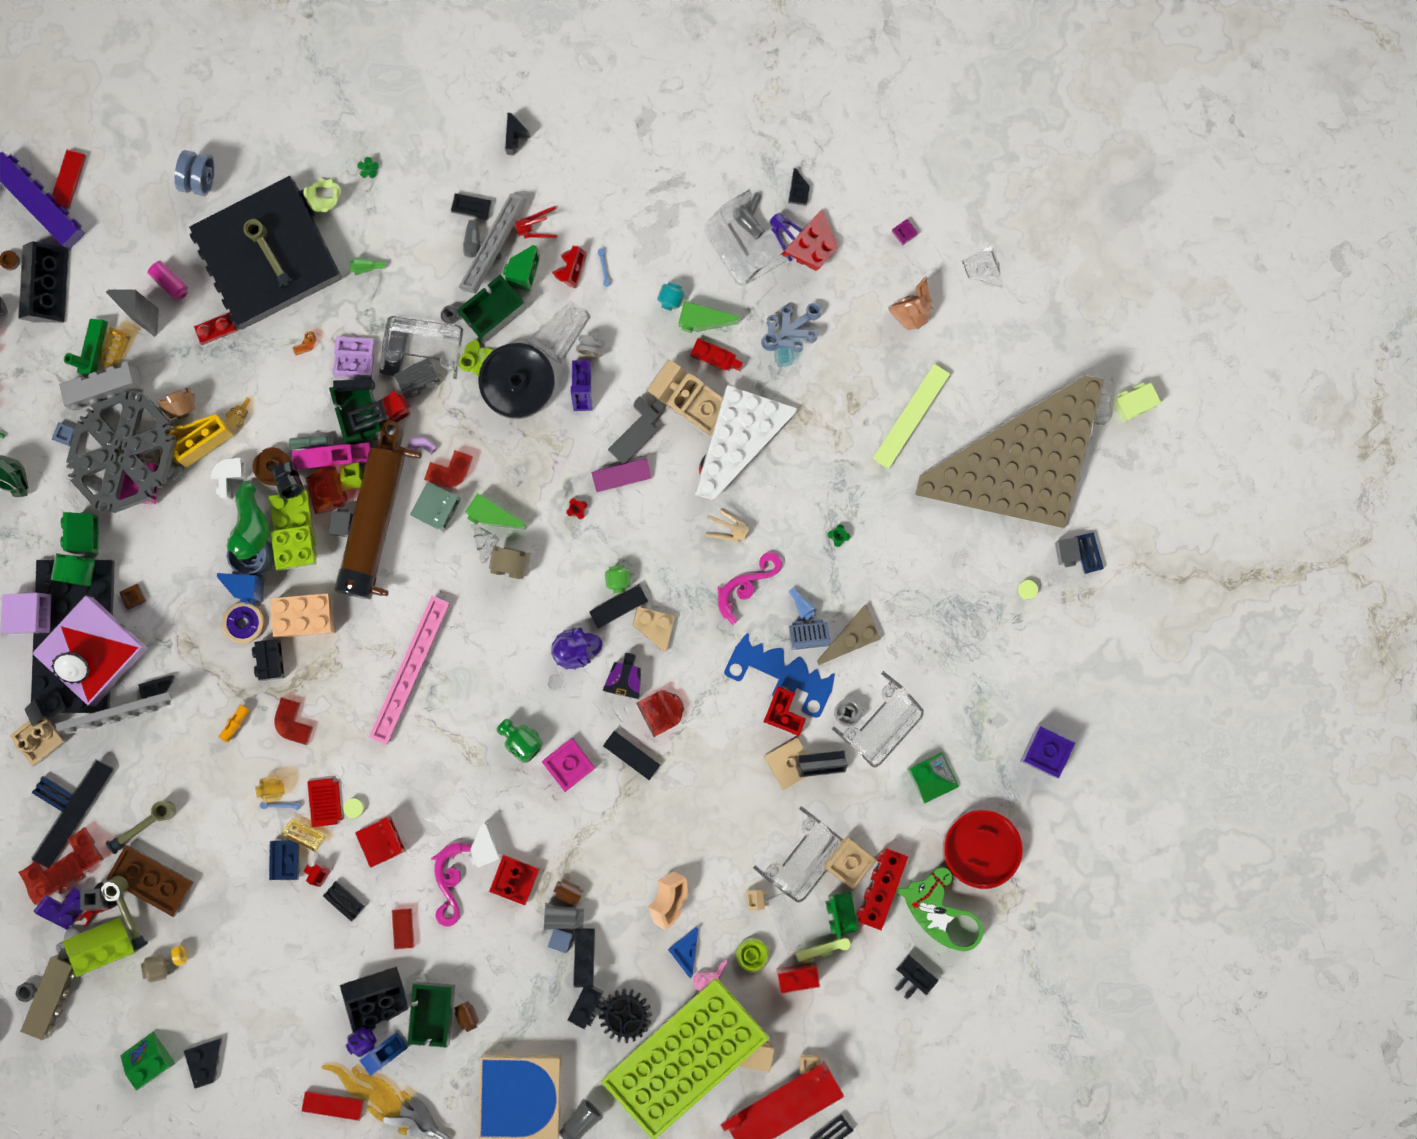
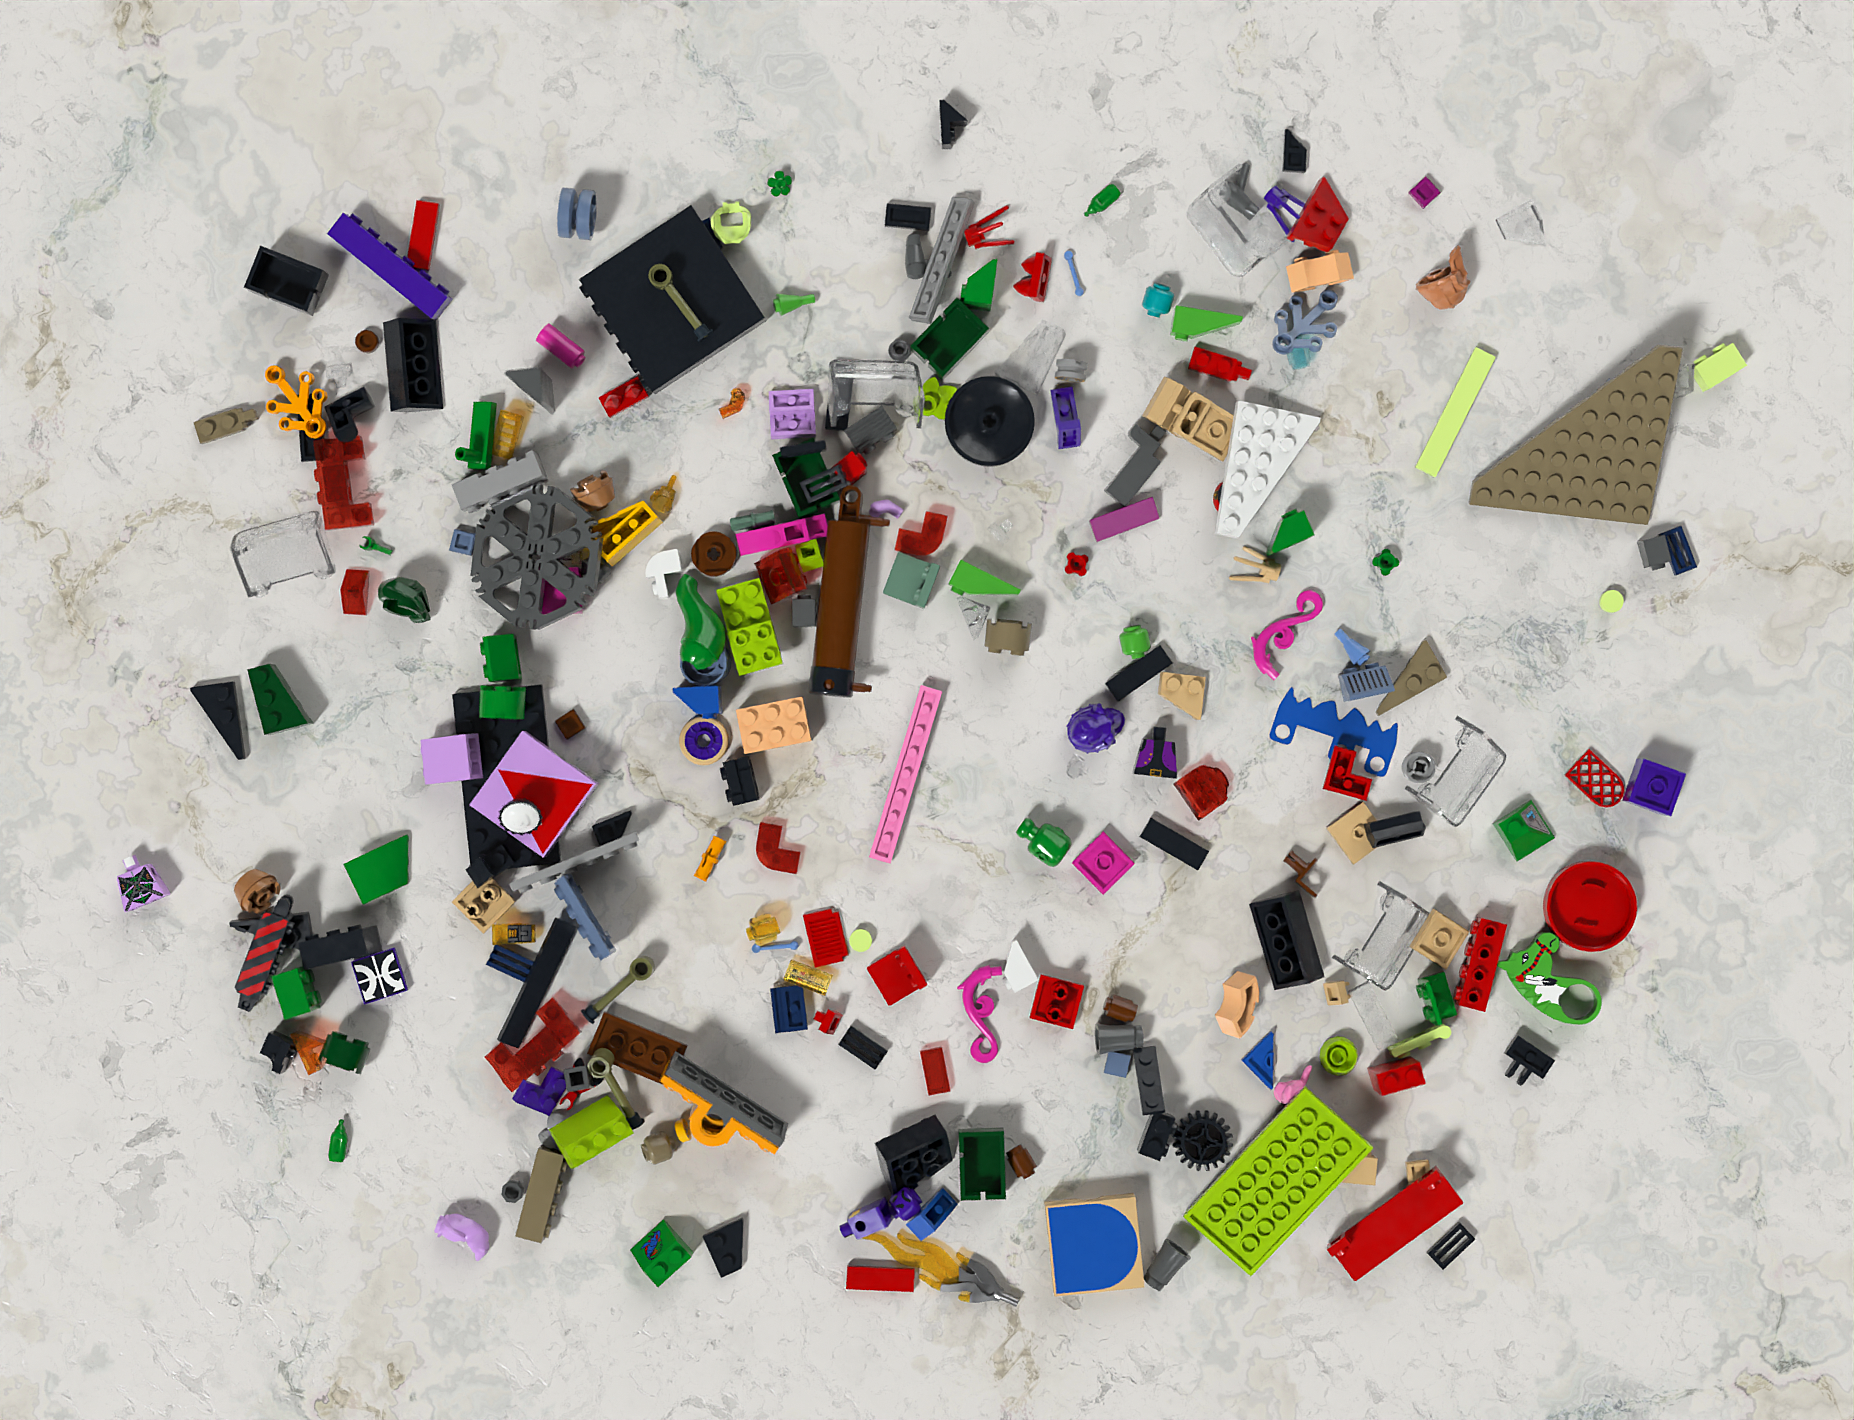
camera: 15 degrees left, 5 degrees up
(57, 768) = (513, 933): none -> leg
(119, 768) = (580, 910): none -> sand blue plate
(208, 929) = (716, 1097): none -> dark grey piece
(287, 480) = (739, 570): black wheel -> none
(326, 1052) = (875, 1218): none -> dark purple torso
(635, 209) = (1103, 199): none -> green piece
(718, 849) = (1287, 940): none -> black slope
(738, 788) = (1302, 869): none -> reddish brown bracket
(759, 500) = (1290, 531): none -> green slope
(800, 287) = (1329, 270): none -> light nougat brick
(994, 735) = (1590, 785): none -> red window

